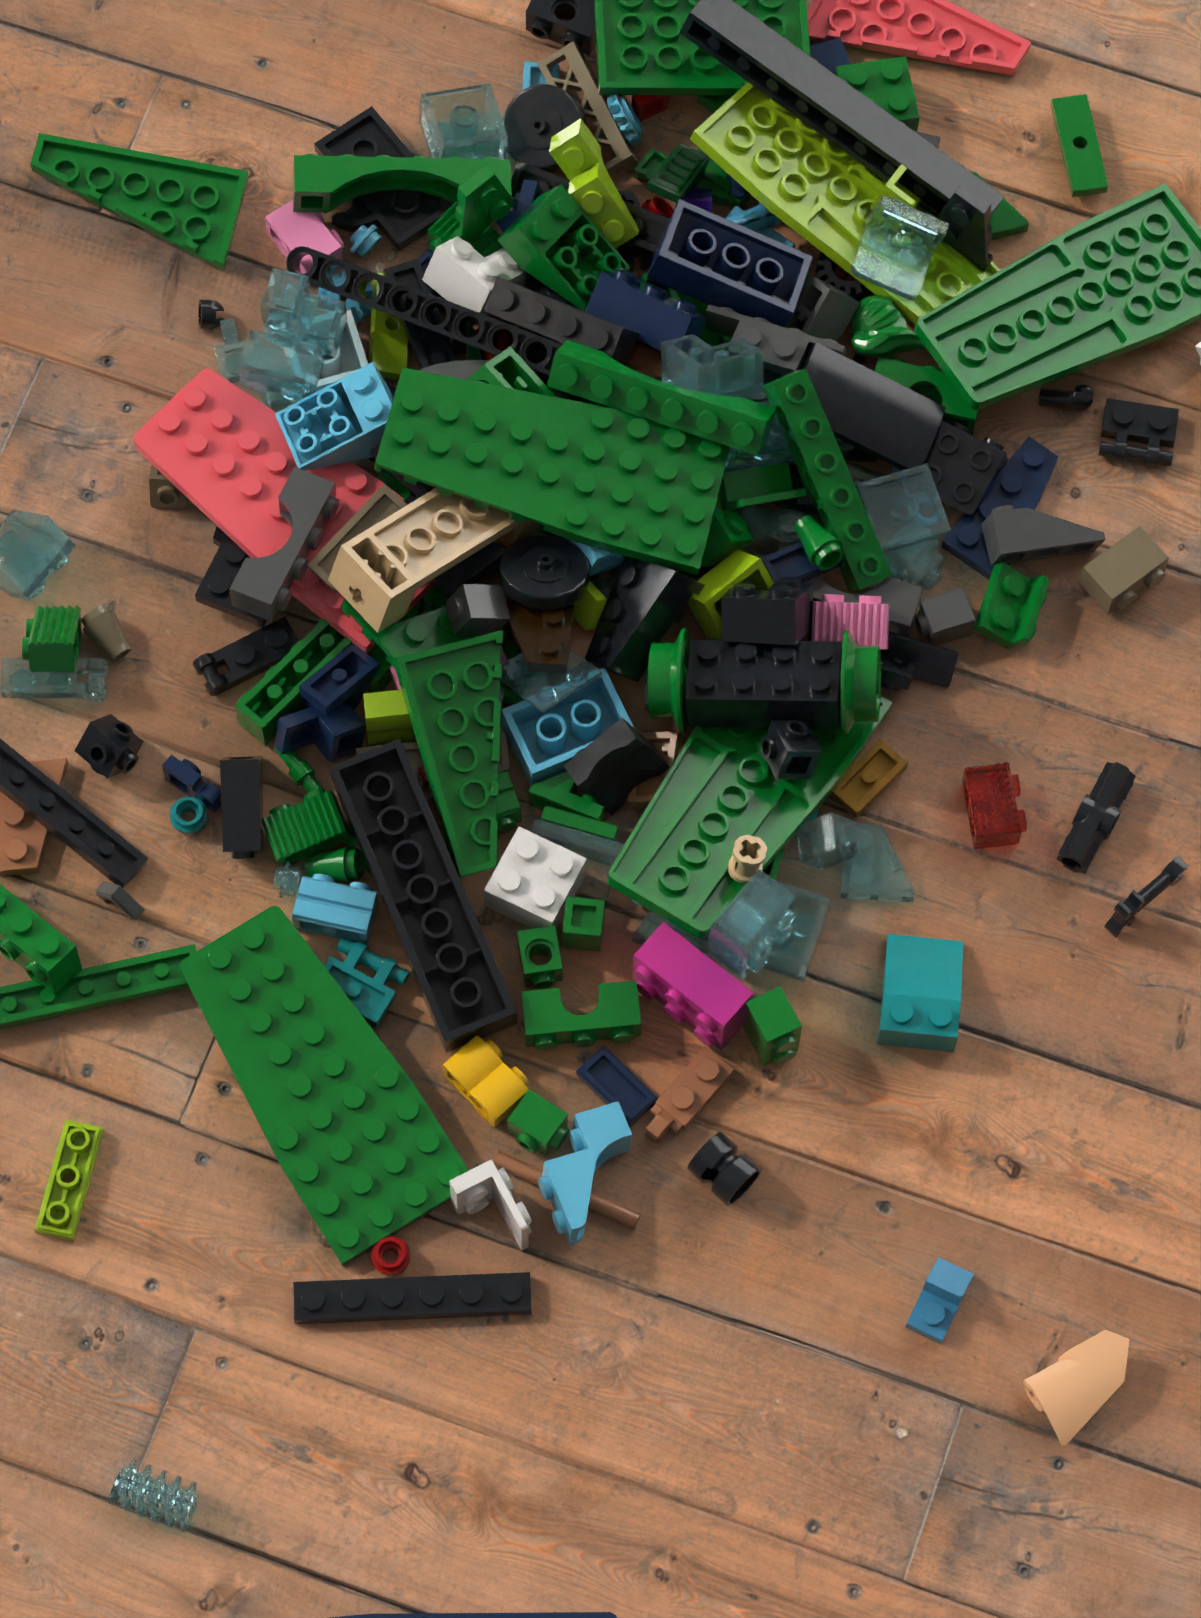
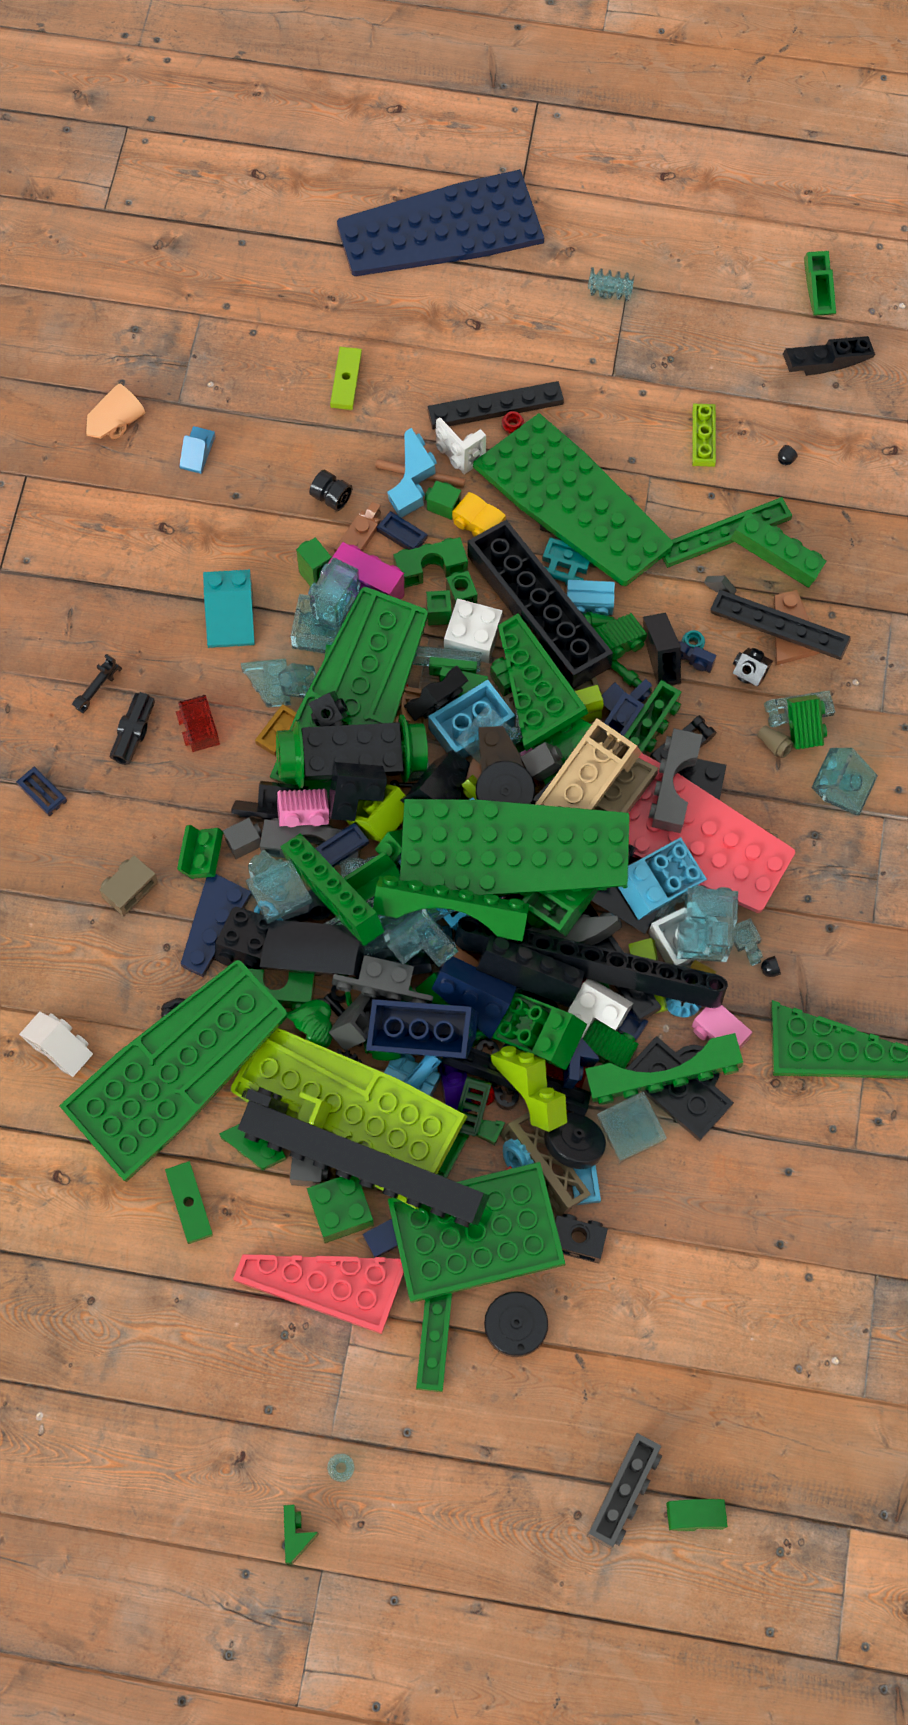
camera: 170 degrees right, 0 degrees up
(286, 879) = (623, 609): clear light blue plate -> none
(364, 240) = (680, 1037): medium azure plate -> none
(480, 203) = (600, 1045): green wing -> none
(669, 1368) = (346, 378): none -> lime tile
(747, 858) = (342, 638): tan bush -> none
(819, 544) = (331, 848): green cone -> none
(897, 247) = (308, 1065): clear light blue bracket -> none
(1033, 535) = (191, 895): dark grey slope -> none
(1138, 424) = (127, 999): black plate -> none

